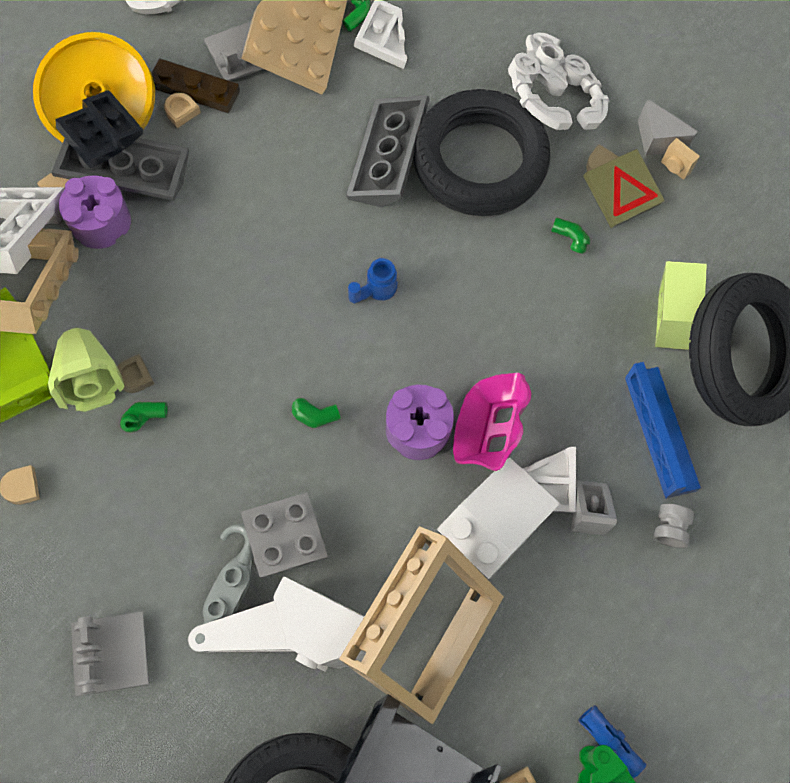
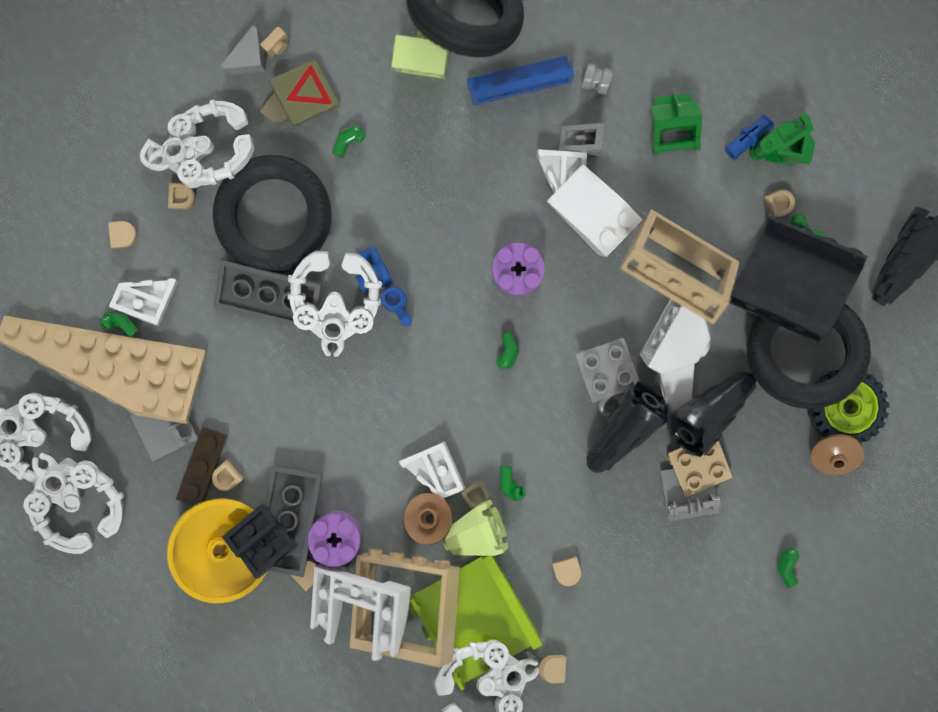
camera: 90 degrees left, 20 degrees up
(107, 313) = (417, 518): none -> medium nougat dish
(145, 665) = (699, 472): none -> tan hinge
(167, 326) = (436, 470): none -> white wing
(210, 561) = (630, 425): none -> black cone
(211, 670) = (707, 416): none -> black cone
(368, 209) = (309, 317): none -> white piece
(410, 259) = (378, 266): none -> blue piece
(454, 16) = (122, 234): none -> tan tile
(478, 417) = (518, 224): dark pink piece -> none
(496, 71) = (180, 196): none -> tan tile
(635, 626) = (675, 113): none -> green piece

